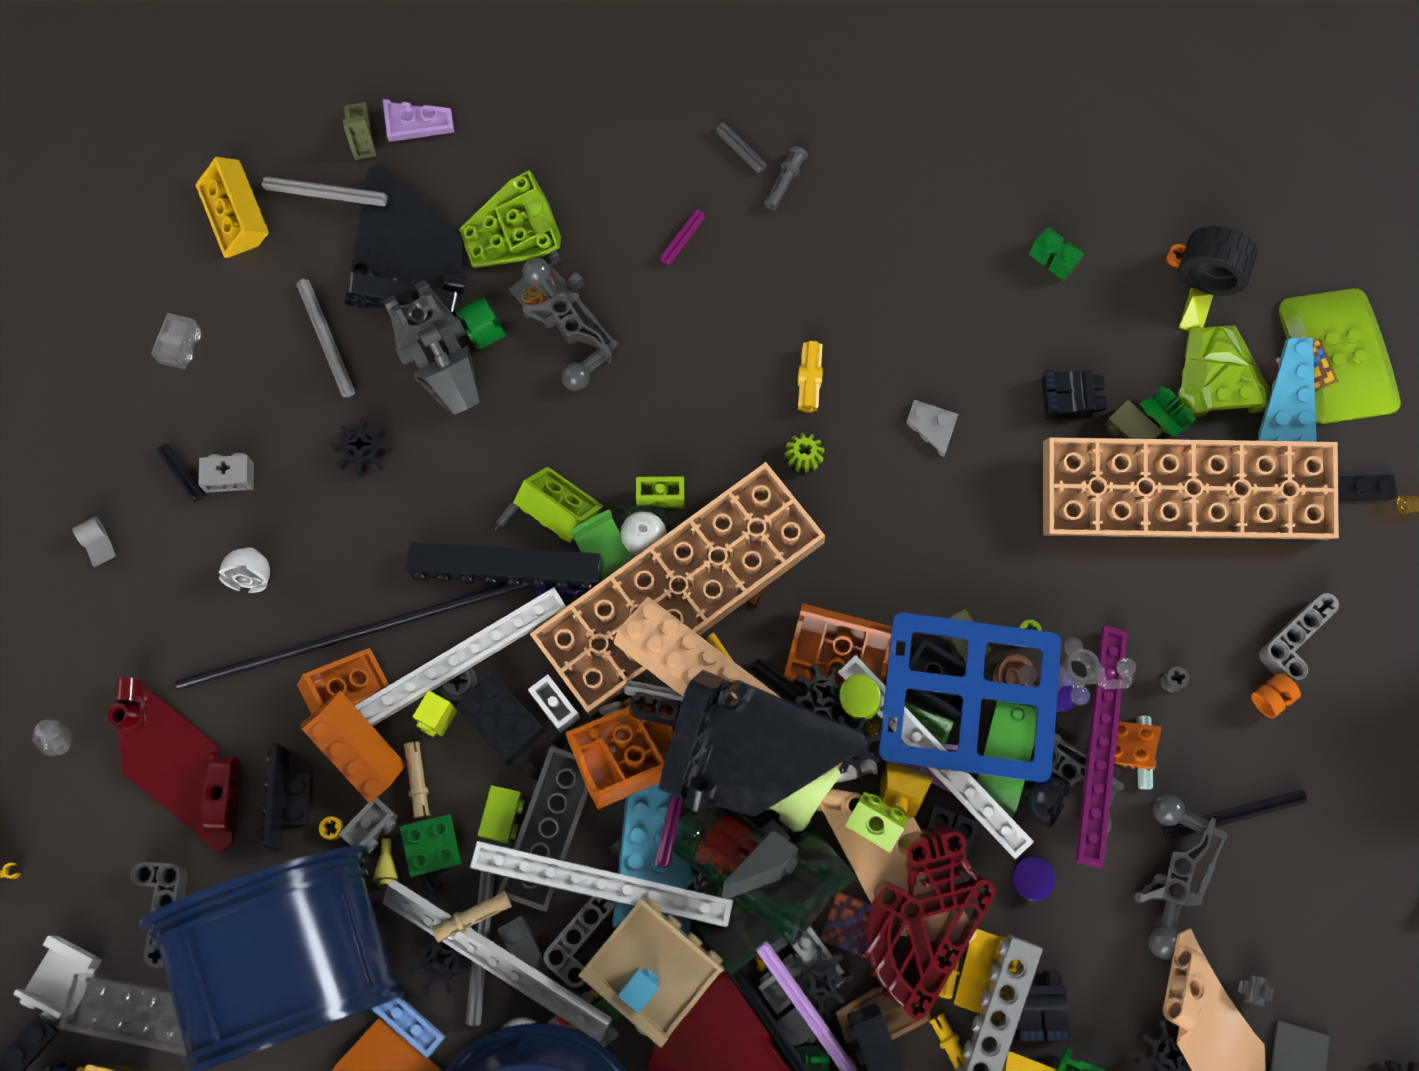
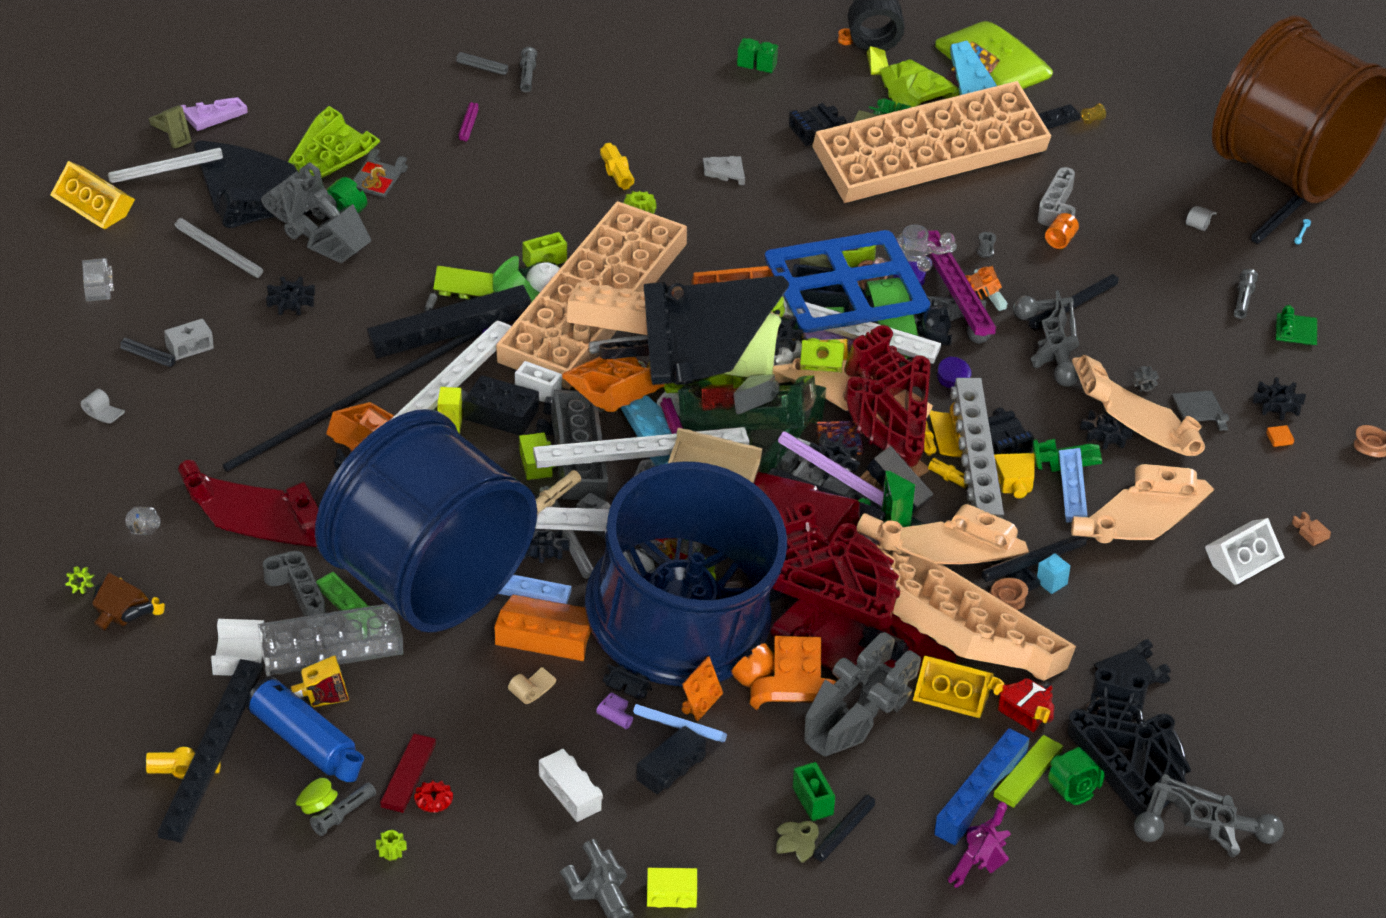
camera: 25 degrees left, 30 degrees down
(245, 569) = (243, 383): white cylinder -> none
(574, 375) = (411, 184): dark grey piece -> none

